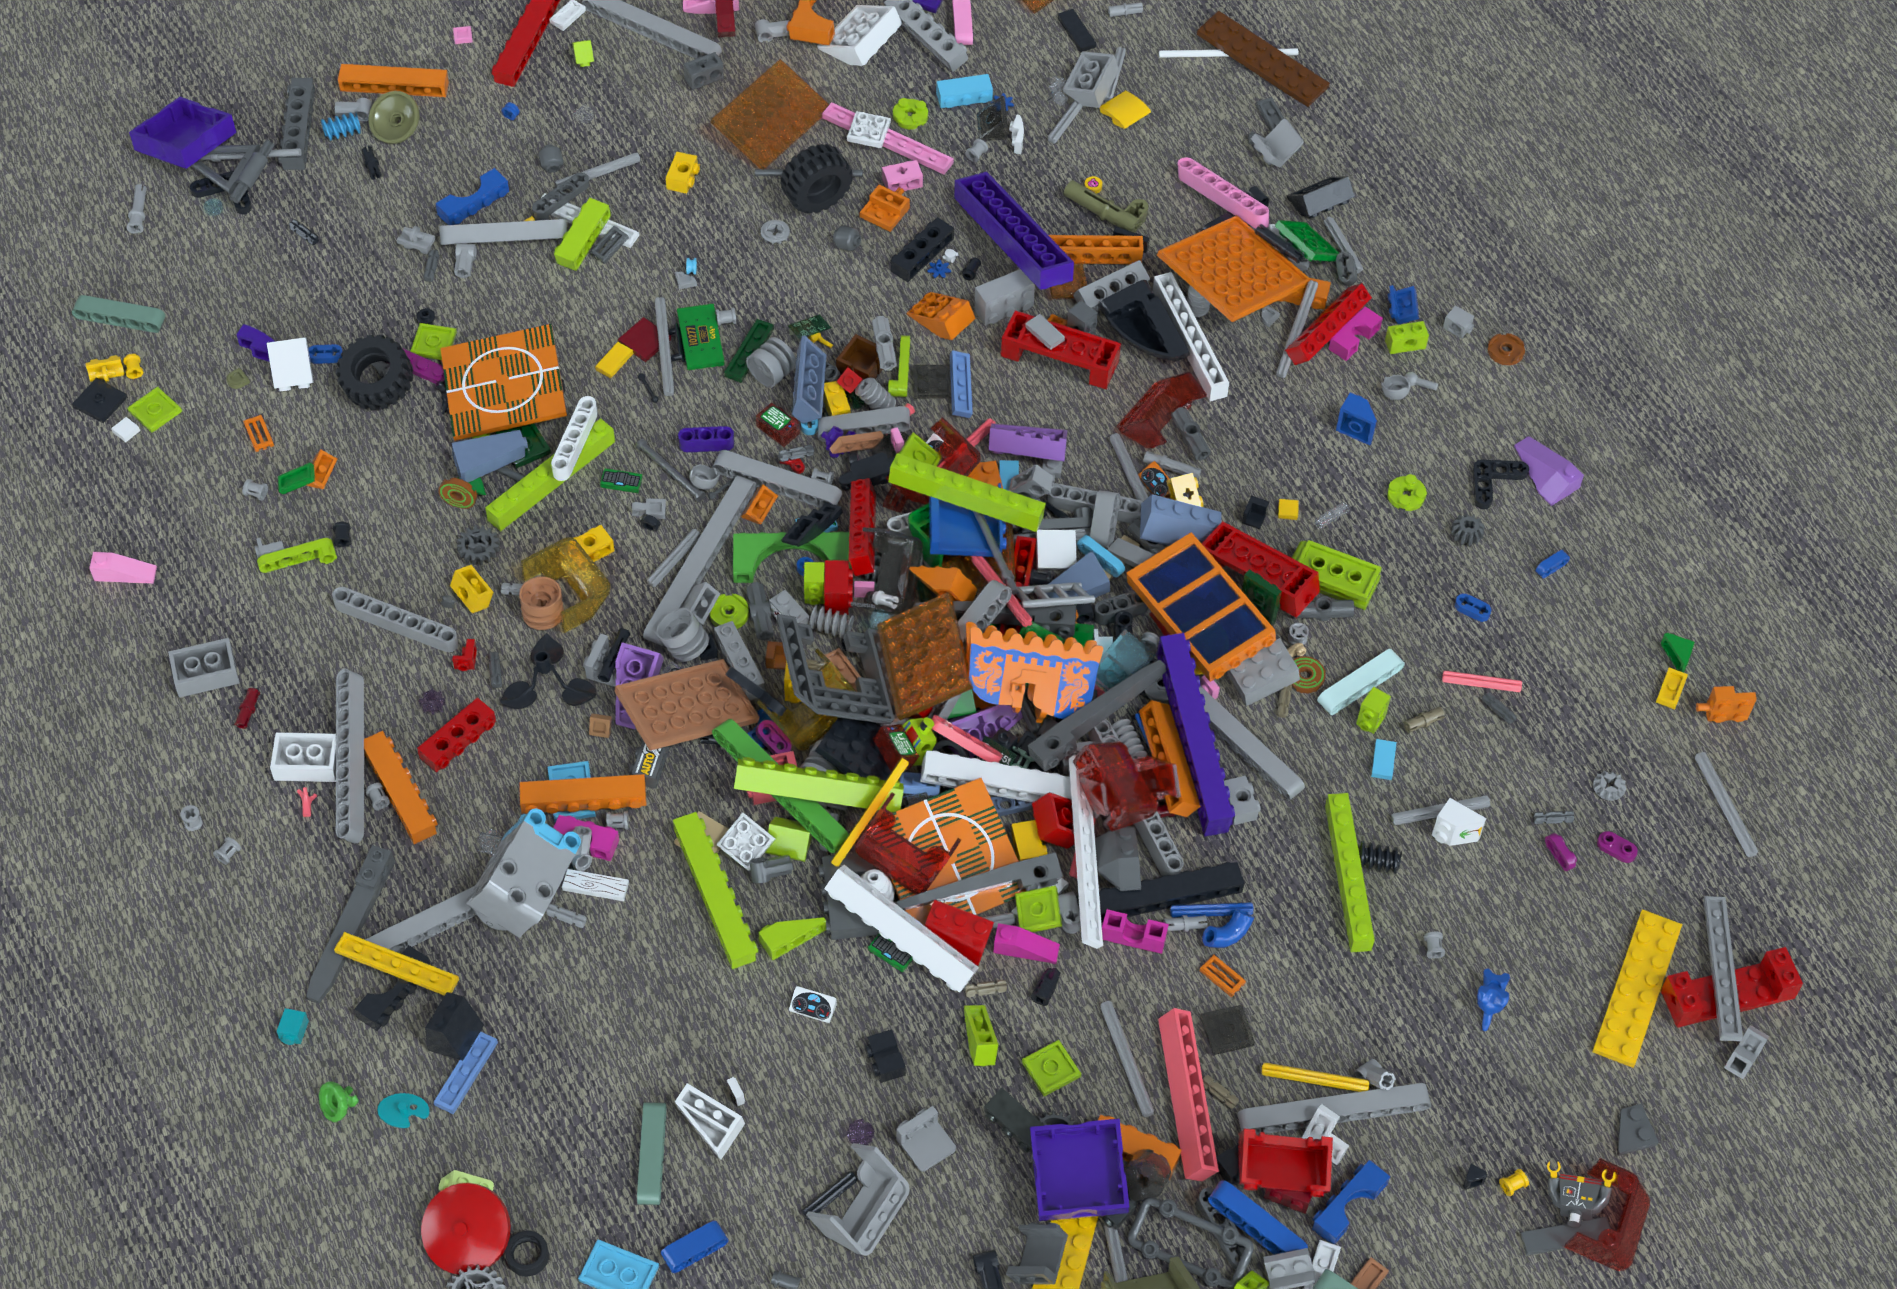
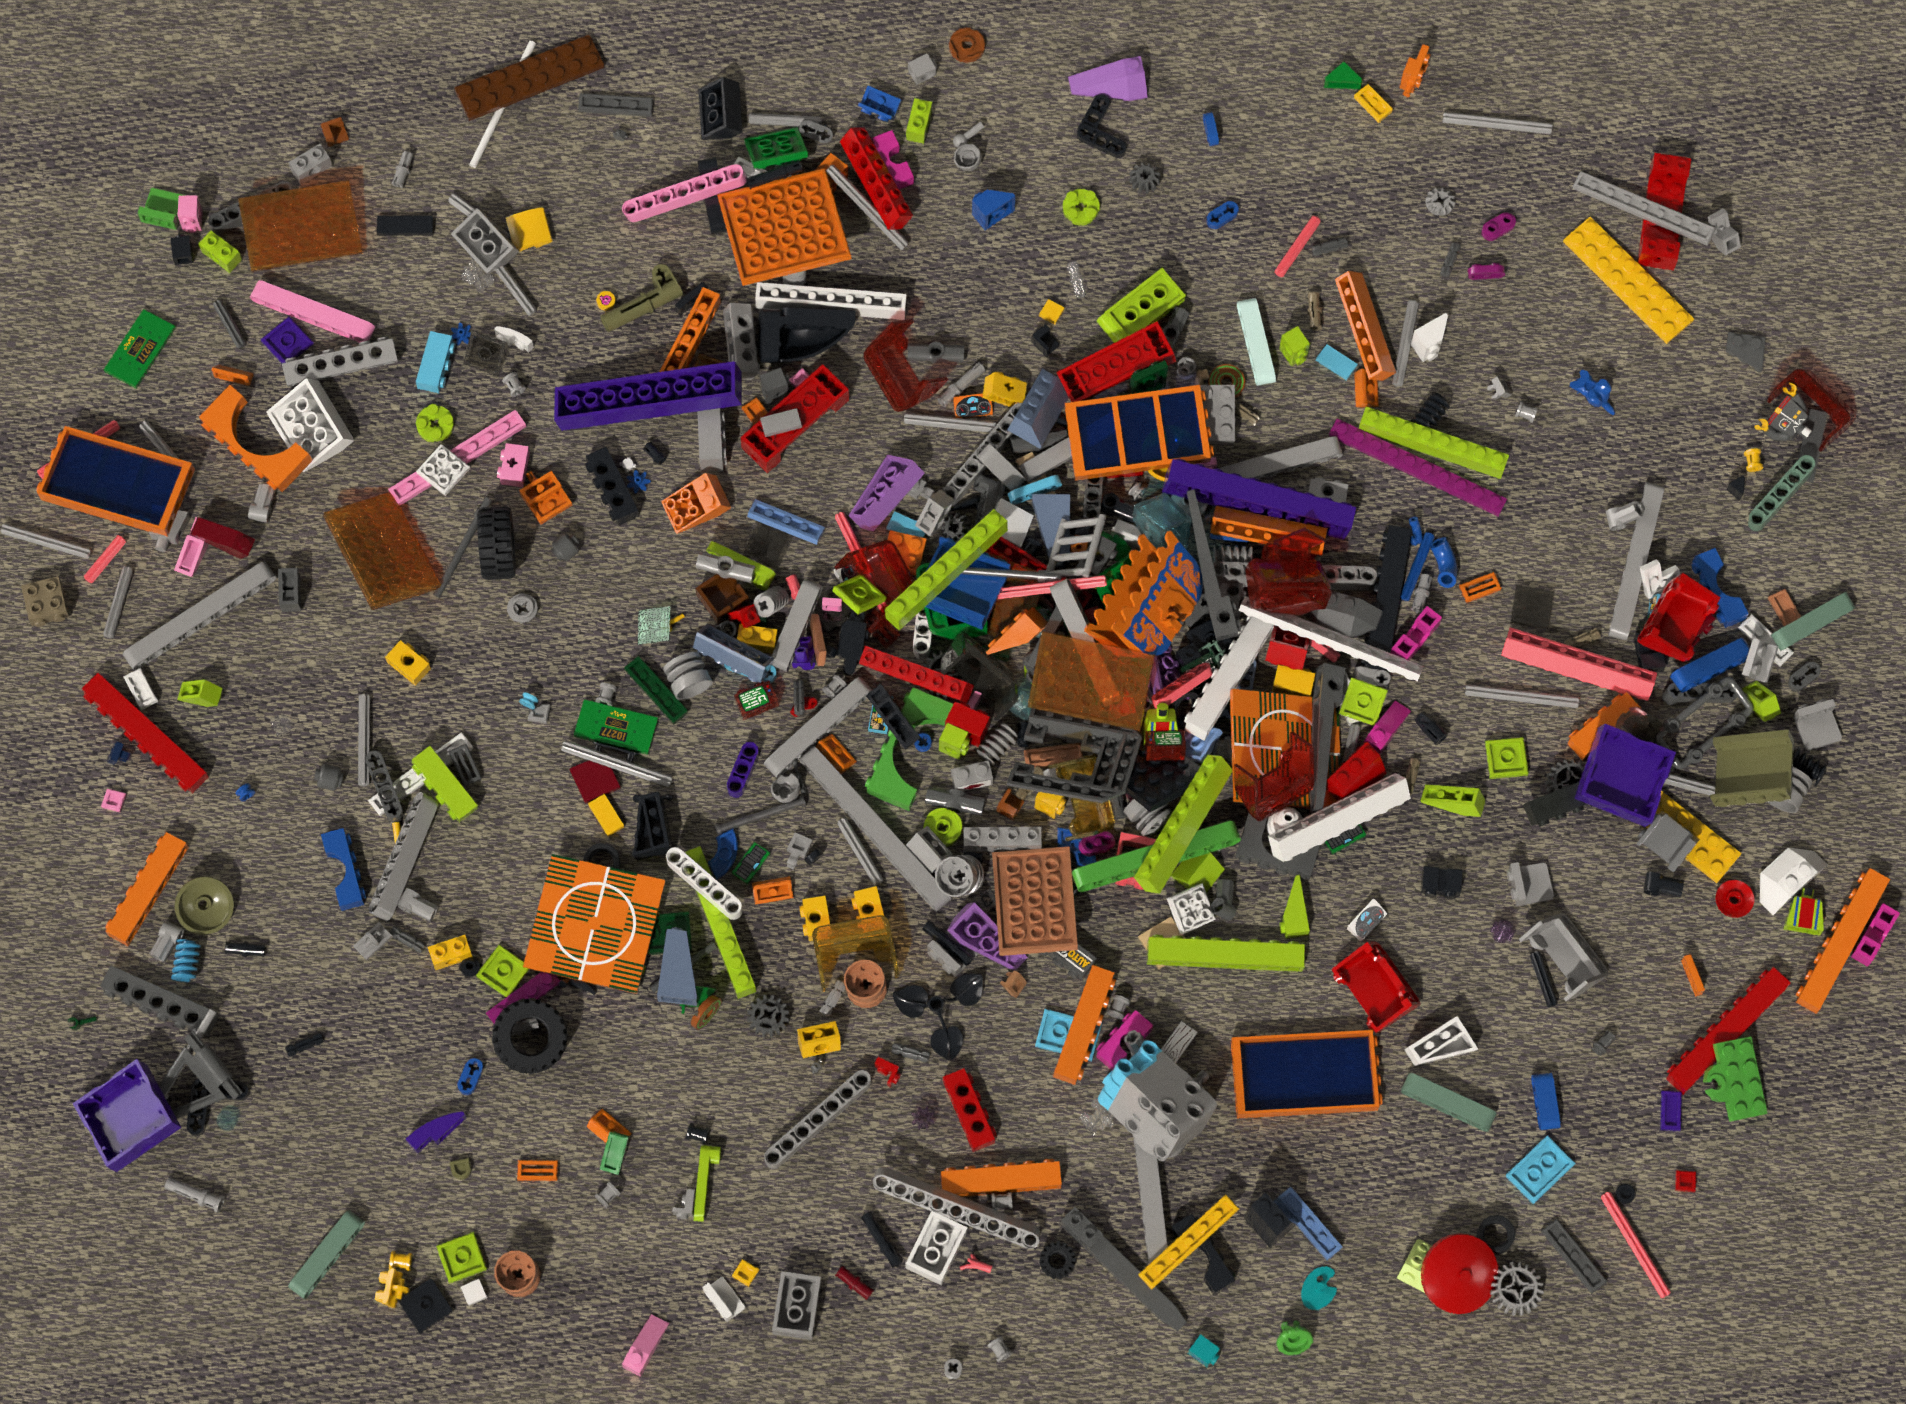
camera: 65 degrees left, 15 degrees up
(150, 447) = (519, 1262): none -> nougat wheel
(190, 612) = (724, 1298): none -> white panel
(224, 621) = (745, 1273): none -> yellow tile
(257, 83) = (80, 1022): none -> dark green hand
(290, 364) = (478, 1110): white brick -> none
(315, 697) = (886, 1247): none -> black pin
(333, 855) = (1062, 1249): none -> black tyre
(431, 295) = (449, 952): none -> yellow brick
(502, 18) = (117, 754): none -> dark blue tile
(576, 380) = (603, 847): none -> black tyre
(603, 506) = (772, 890): none -> orange slope
(618, 391) = (652, 829): none -> black wedge
(620, 459) = (725, 854): none -> blue tile
(622, 1009) = (1305, 1074): none -> clear blue window
(629, 581) = (867, 898): none -> yellow brick
(736, 1091) = (1422, 1013): white tile -> none
(749, 1038) = (1376, 985): none -> red windscreen
(757, 691) = (1059, 831): black beam -> none
(870, 811) = (1230, 793): yellow tile -> none
(881, 598) = (998, 689): white pin -> none
(1249, 894) = (1416, 530): none -> blue arm
(1278, 144) = (644, 115): light grey bracket -> none
(1315, 1077) = (1603, 561): yellow axle -> none
(1317, 873) = (1418, 467): none -> magenta plate
(1373, 796) = (1365, 390): none -> orange slope
(1434, 765) = (1365, 326): none -> orange brick
(1445, 911) = (1501, 388): none -> light grey tile
(1503, 1220) = (1779, 501): none -> sand green beam

